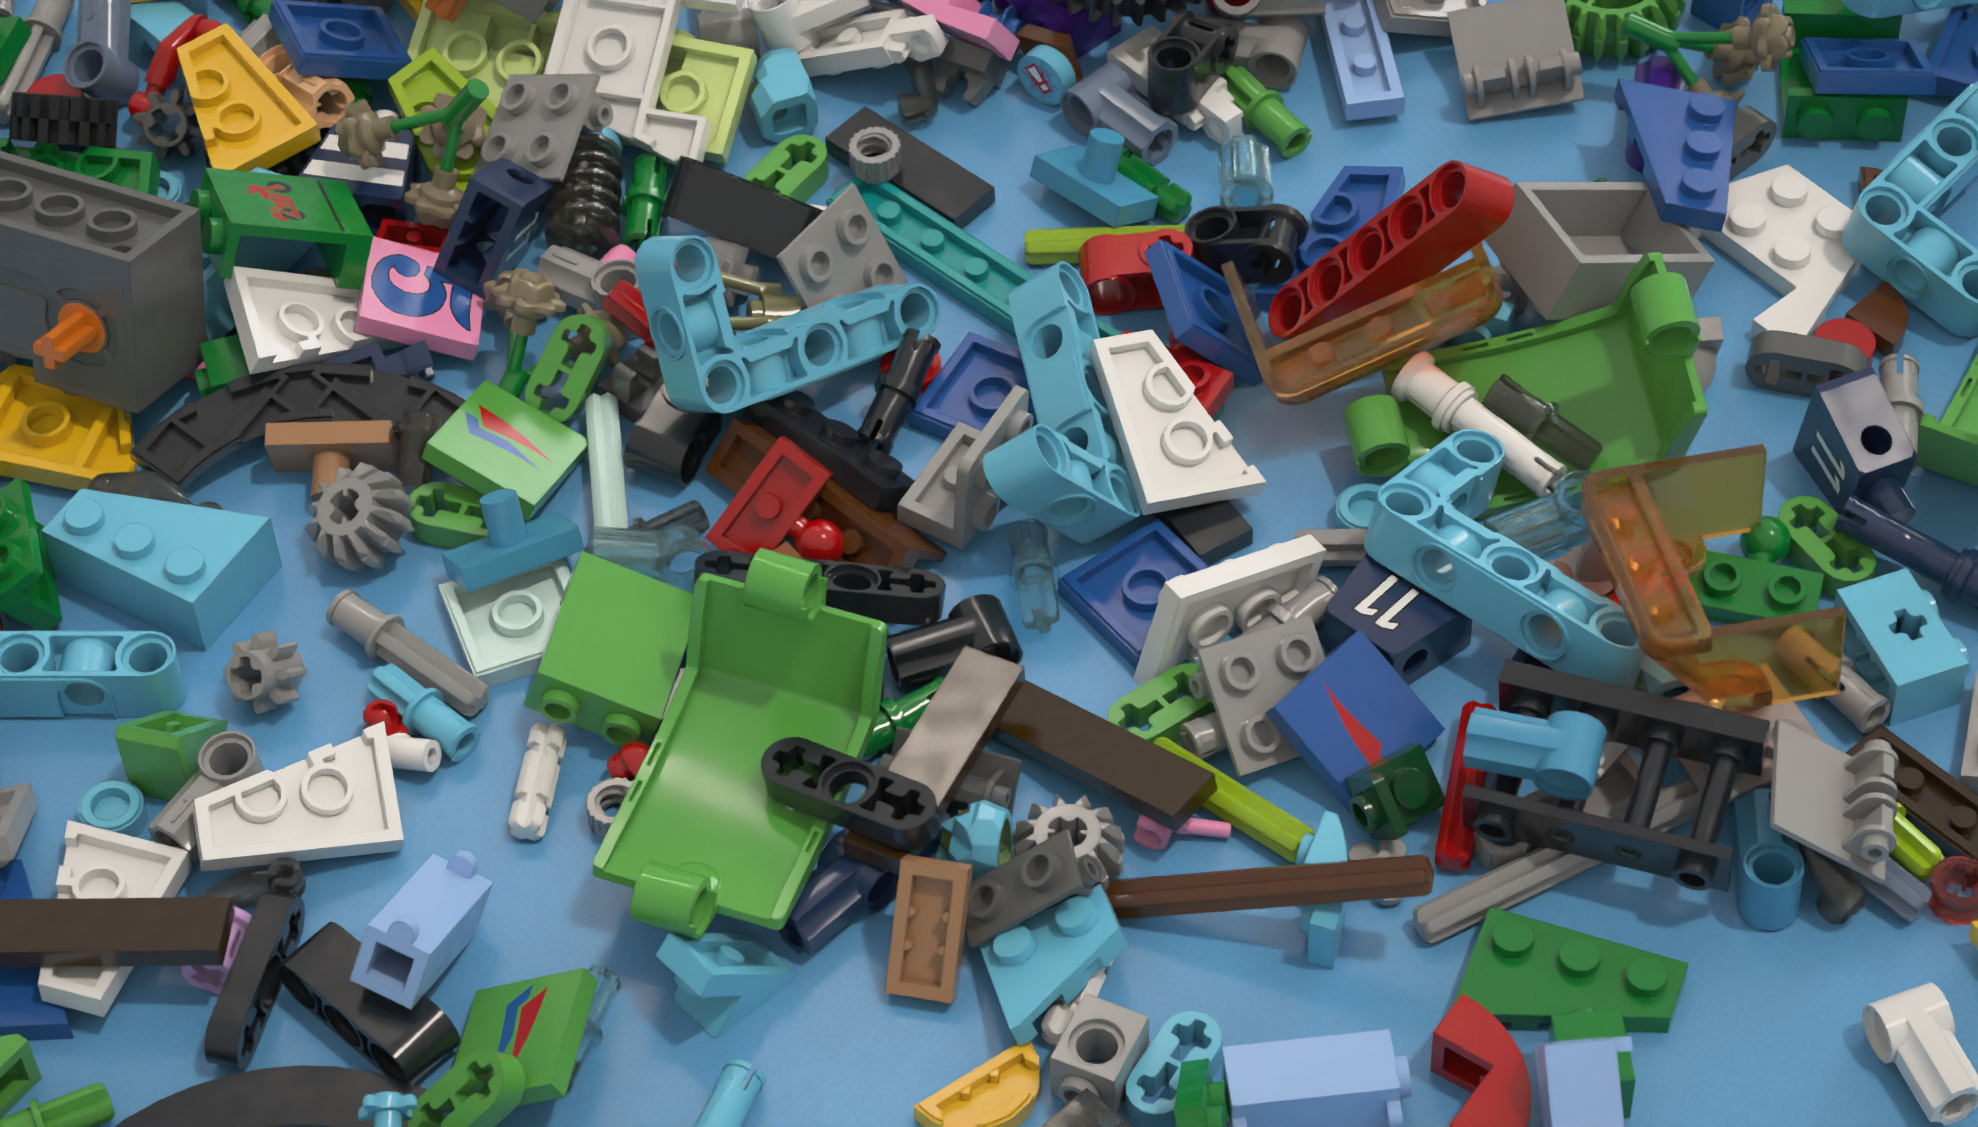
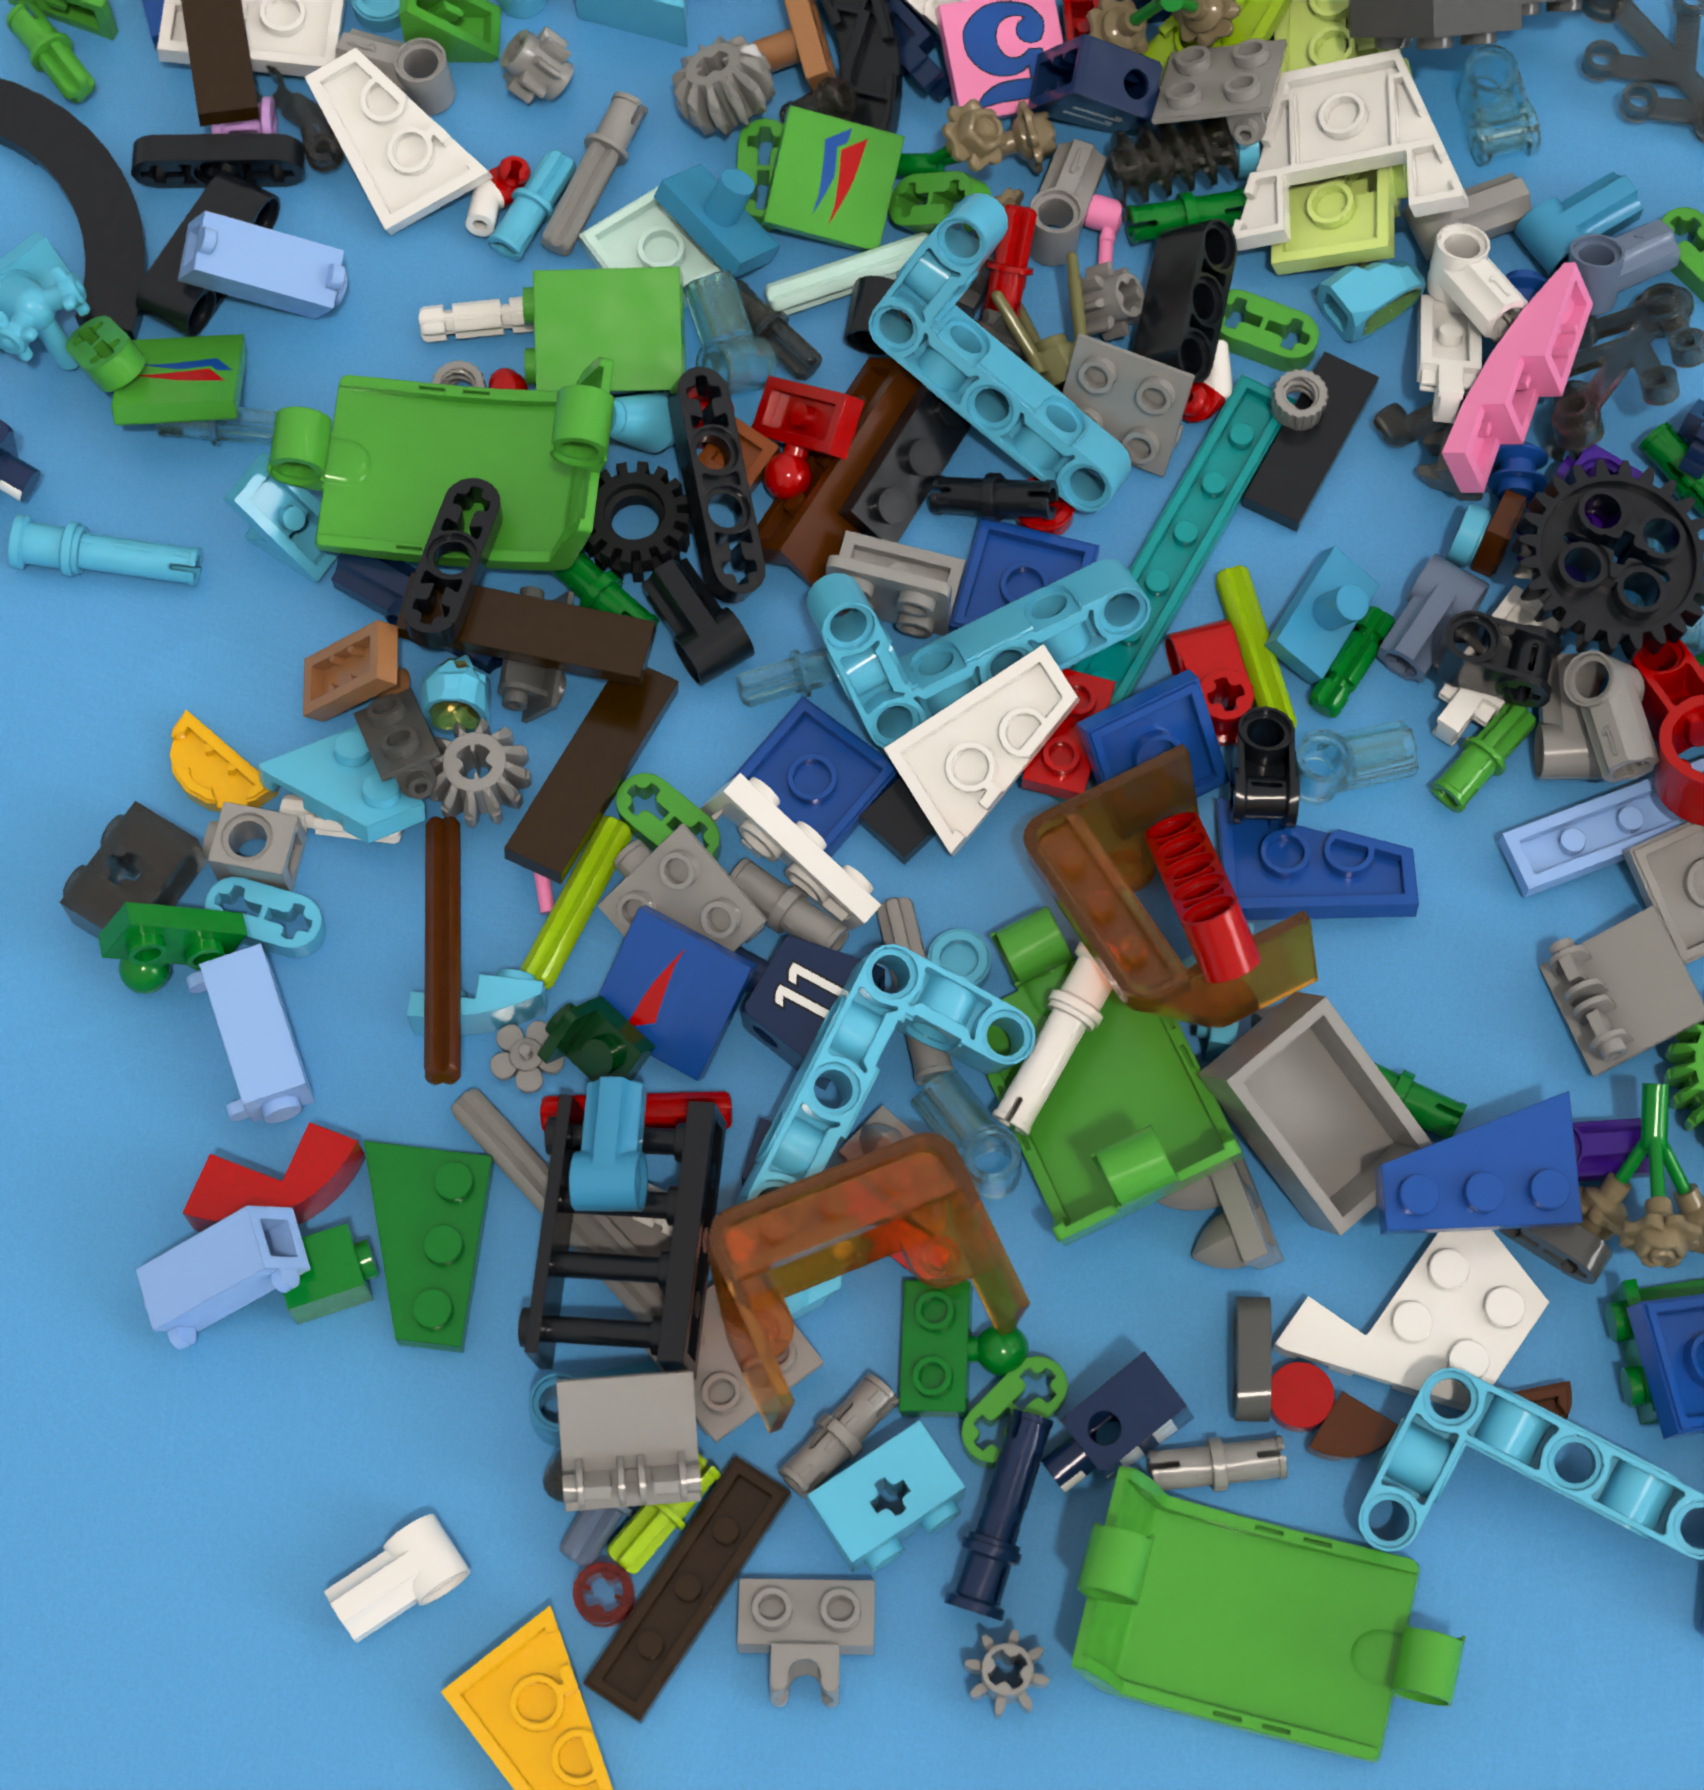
camera: 75 degrees right, 20 degrees up
(1541, 423) = (1075, 1100): clear smoke axle -> none

